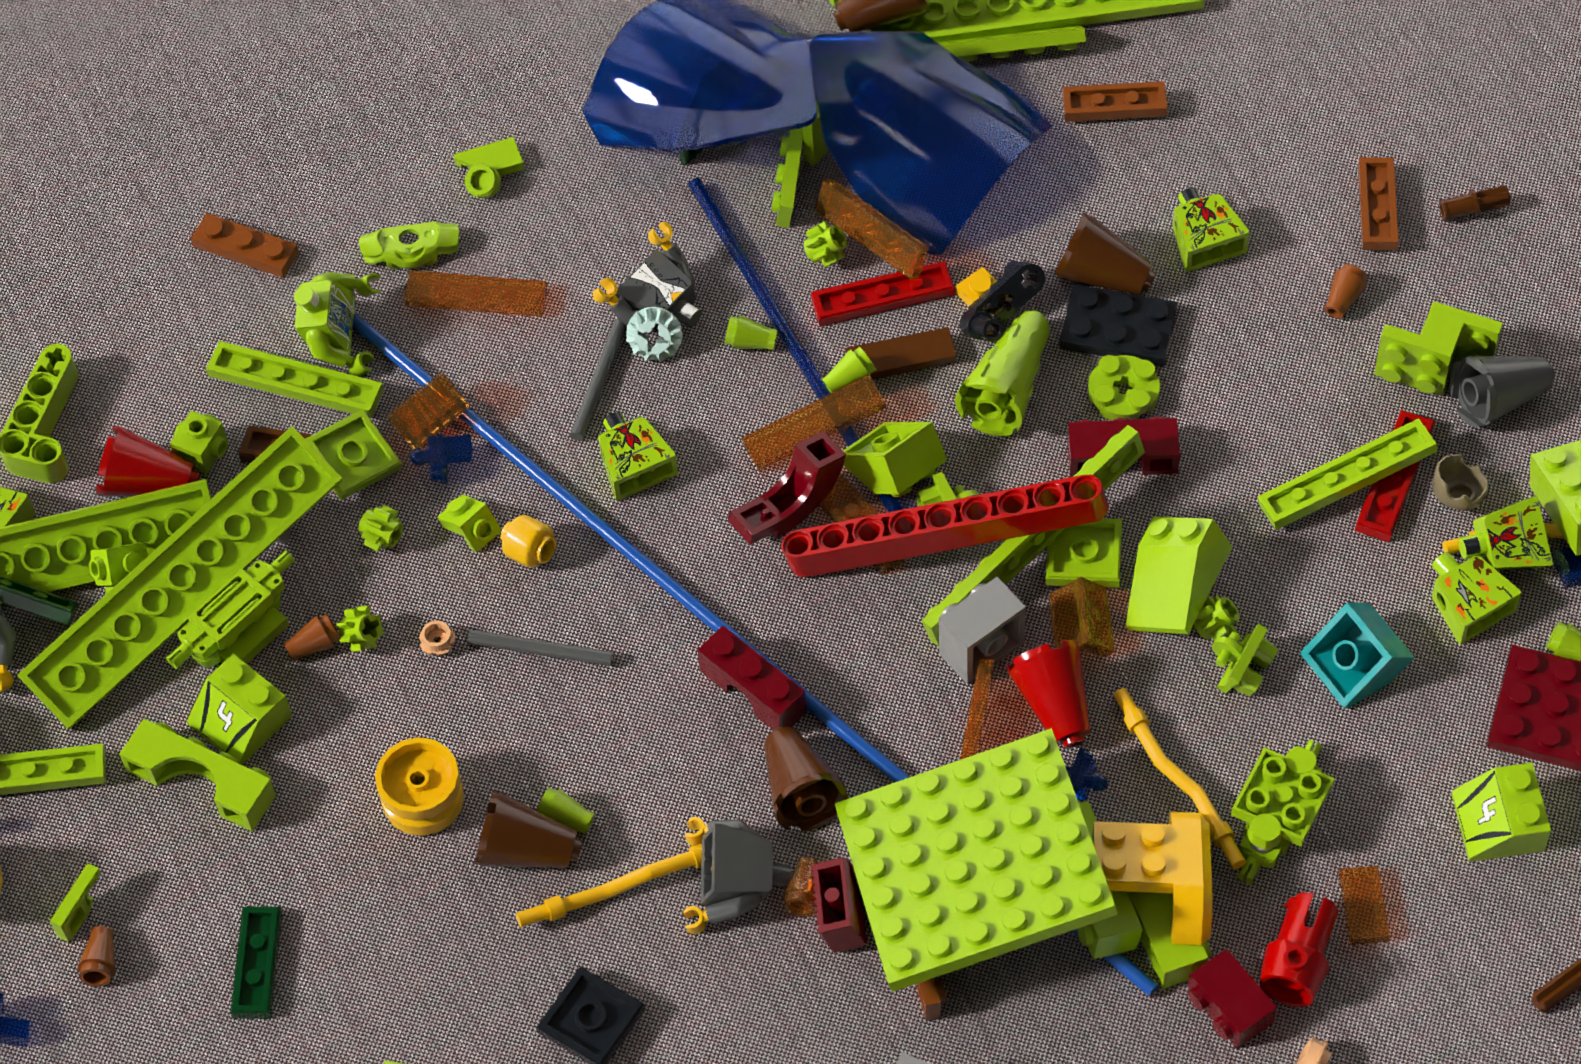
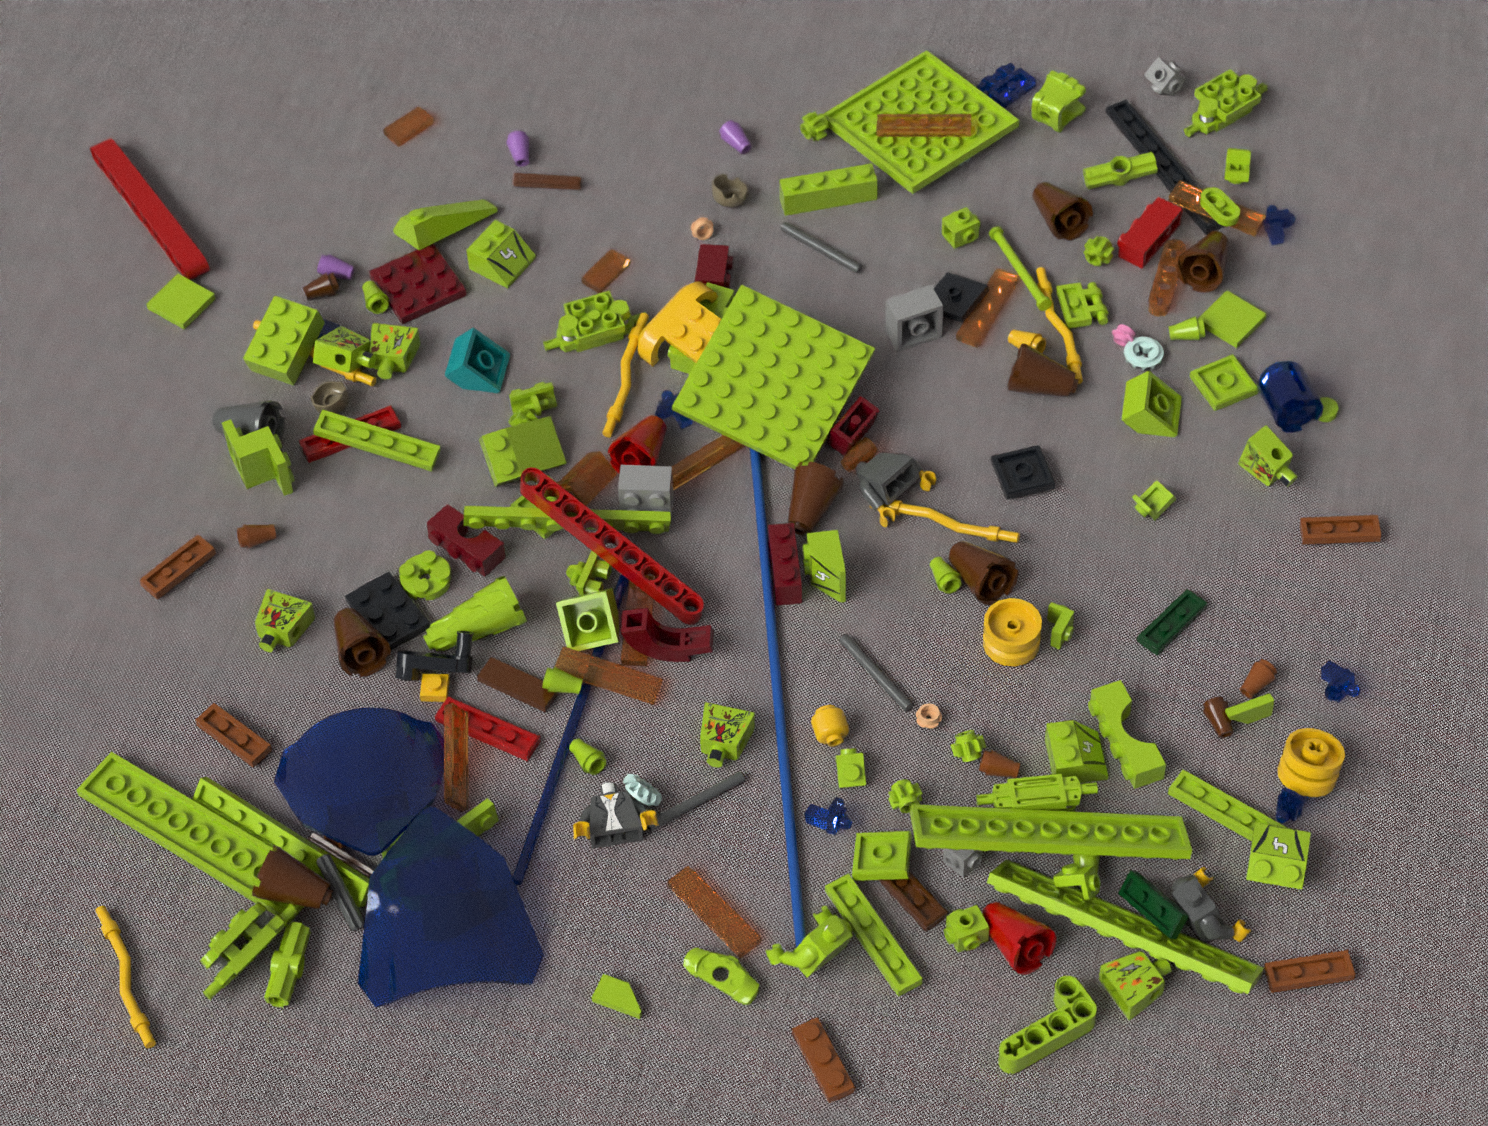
camera: 140 degrees left, 5 degrees down
(116, 877) = (1215, 713): none -> reddish brown cone
(379, 859) = (1063, 621): none -> lime bracket
(428, 410) = (814, 847): clear orange brick -> none
(482, 180) = (639, 980): lime tile -> none
(696, 701) = (825, 563): none -> lime slope
(825, 244) = (489, 771): lime gear -> none
(1296, 961) = (670, 258): red piece -> none
(1474, 202) = (131, 529): reddish brown axle -> none

